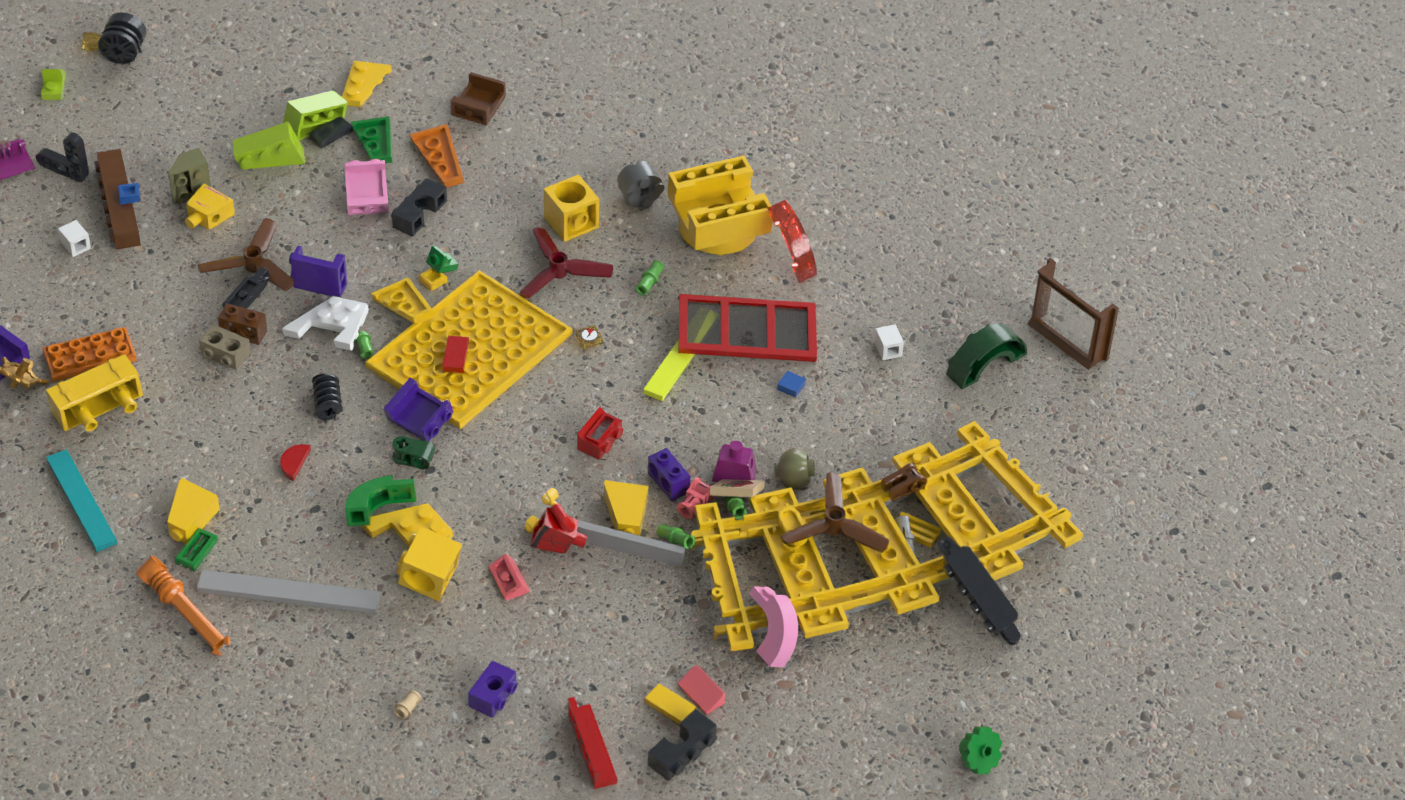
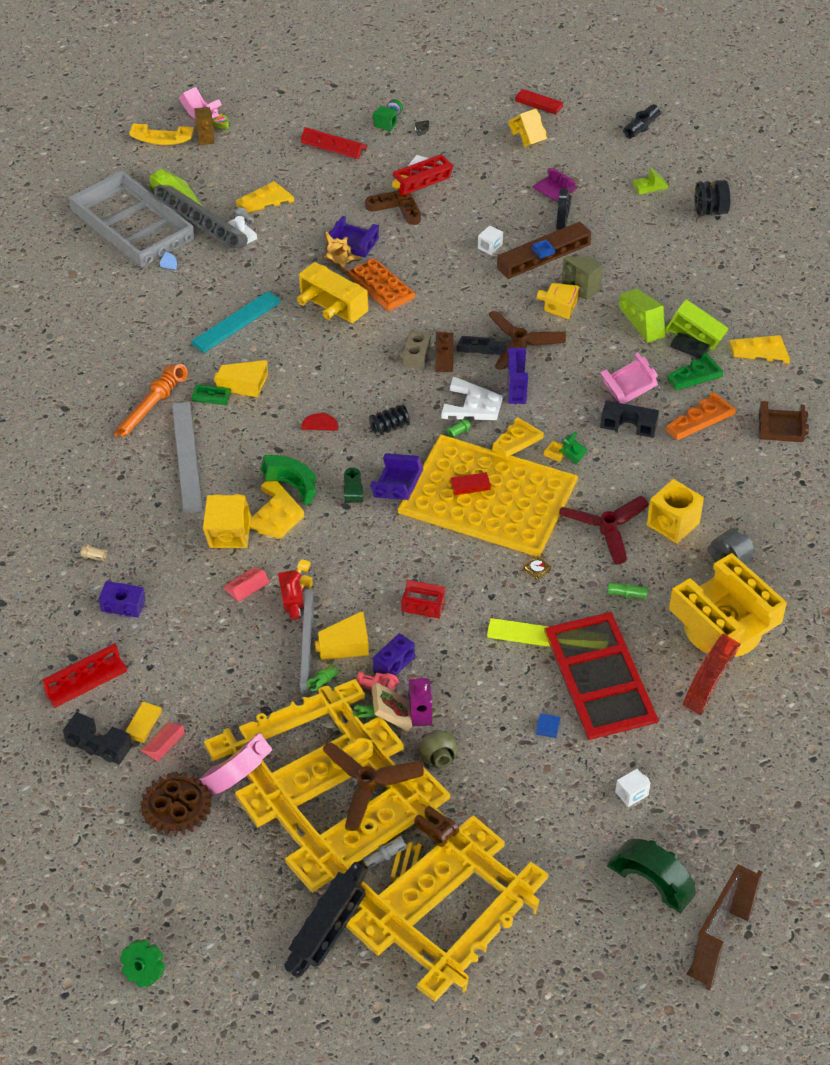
camera: 75 degrees right, 0 degrees up
(804, 691) = (176, 804): none -> reddish brown gear

